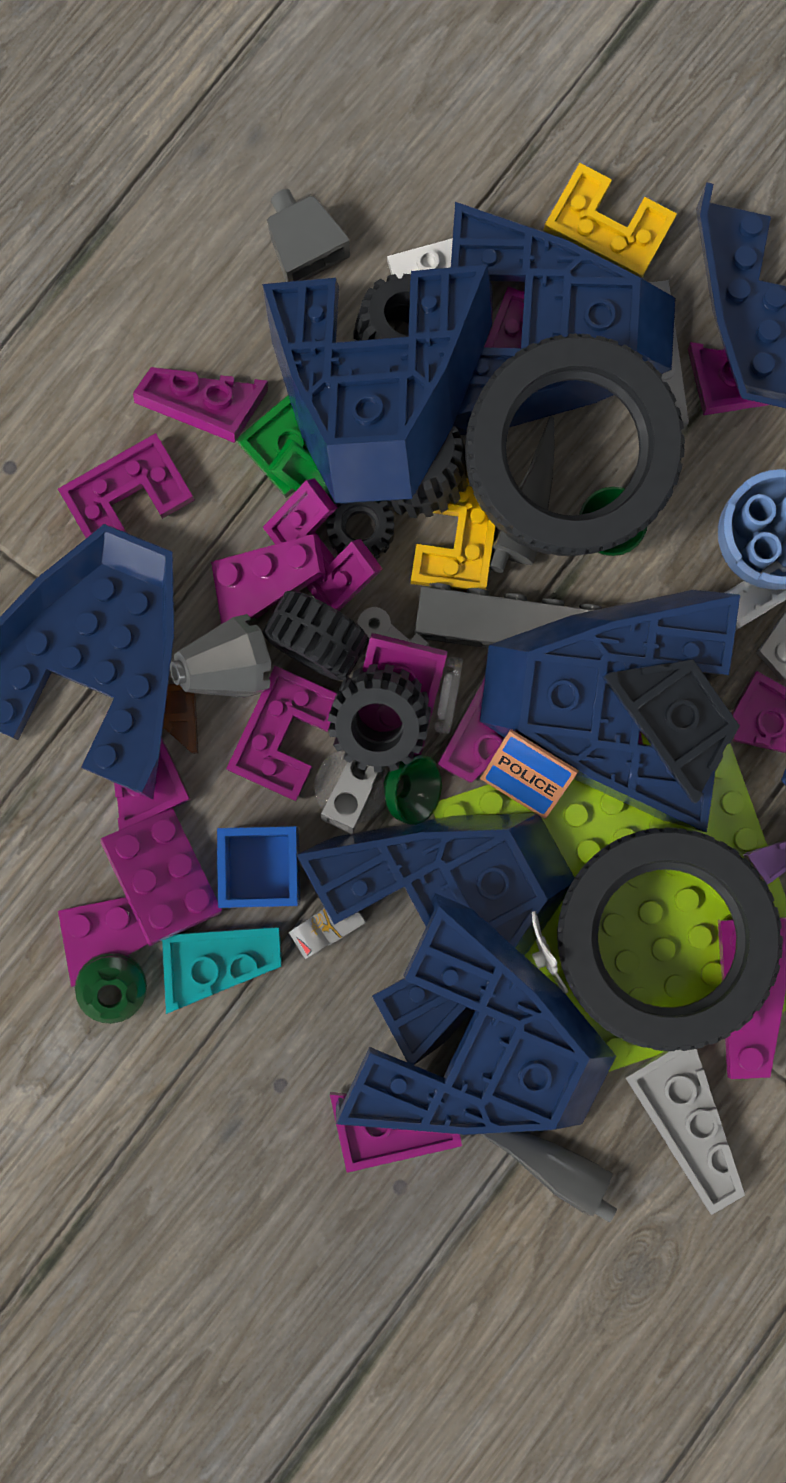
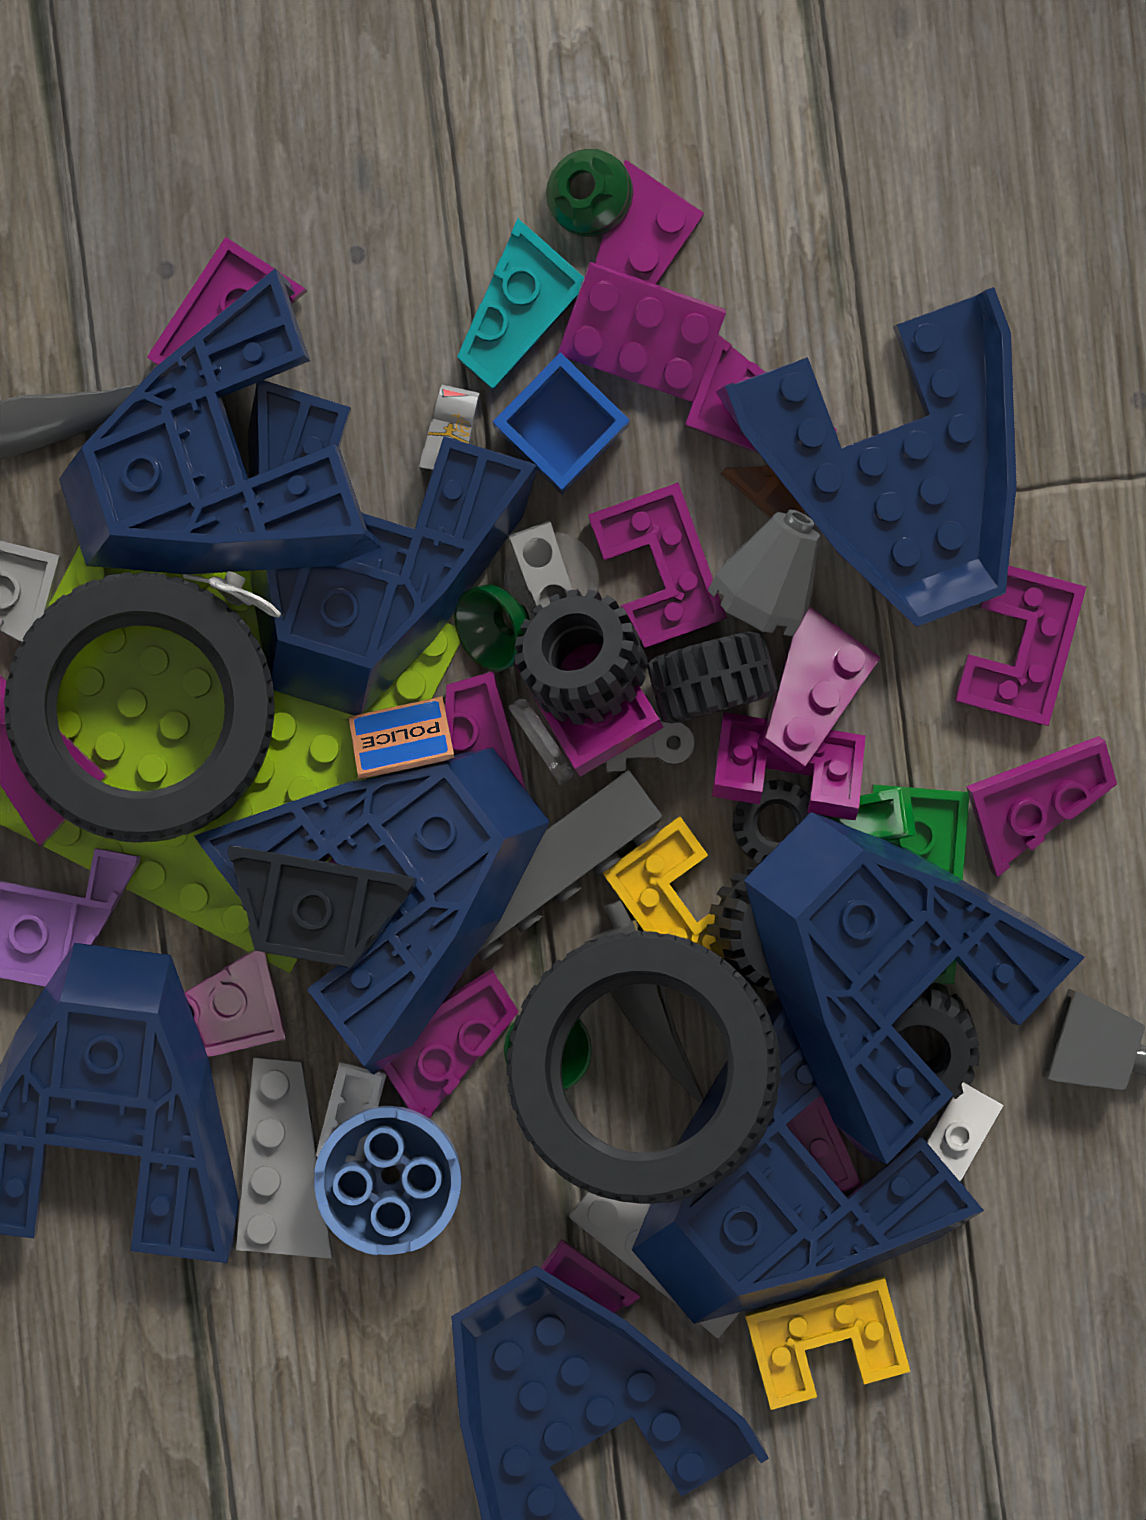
camera: 135 degrees right, 5 degrees up
(651, 577) = (451, 1043): none -> magenta wing

